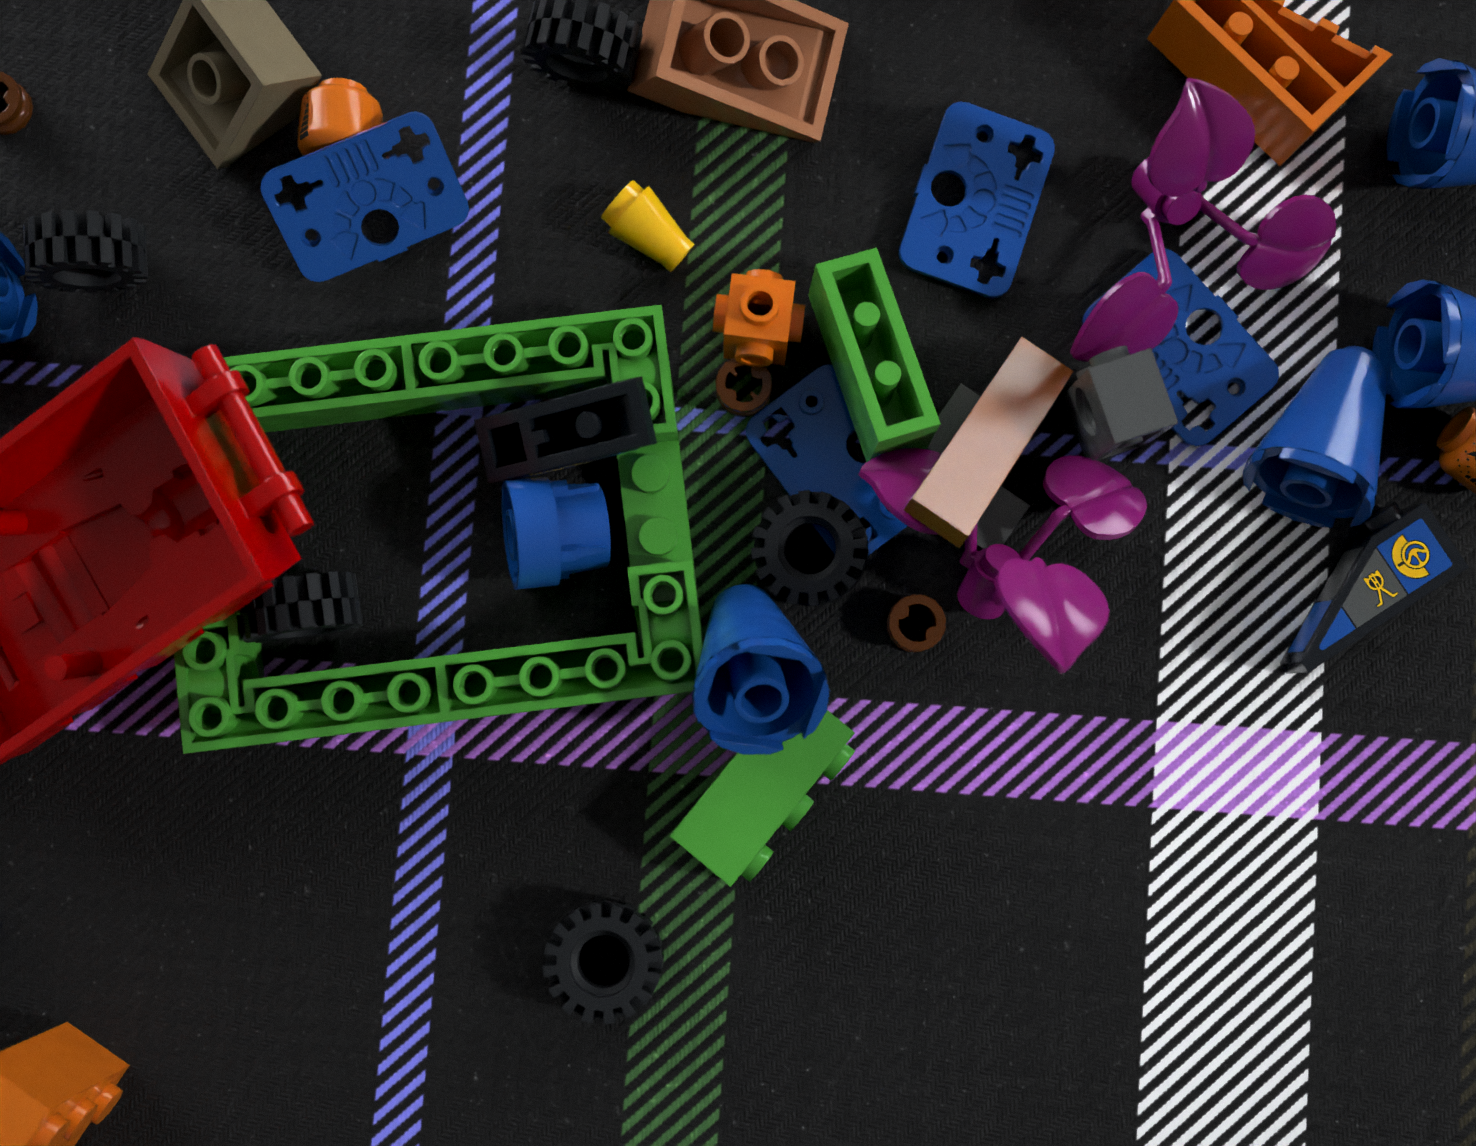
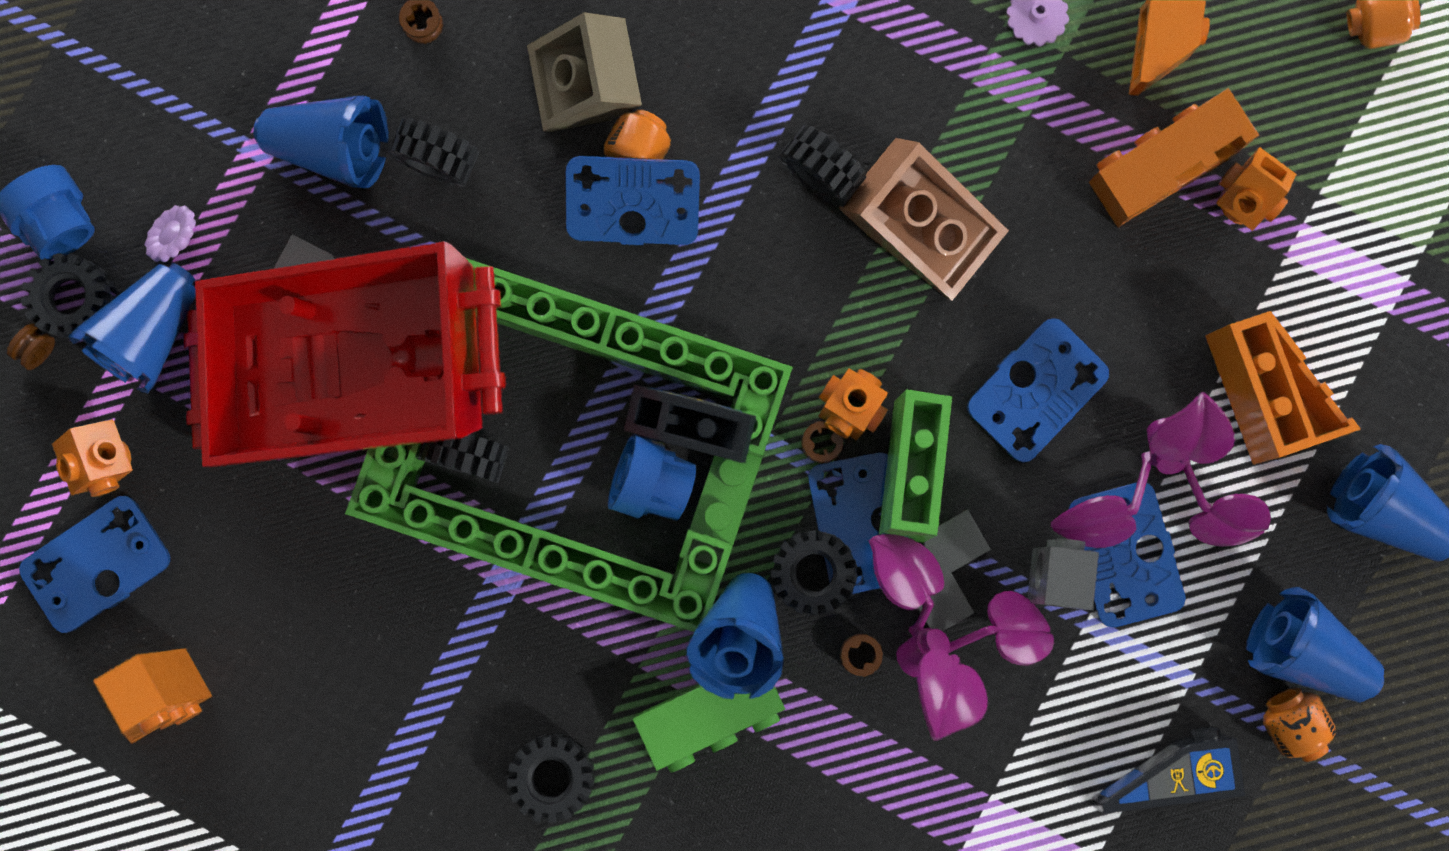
camera: 25 degrees right, 0 degrees up
(646, 225) = (809, 305): yellow cone -> none
(988, 443) = (965, 560): tile -> none
(1326, 443) = (1192, 666): blue cone -> none

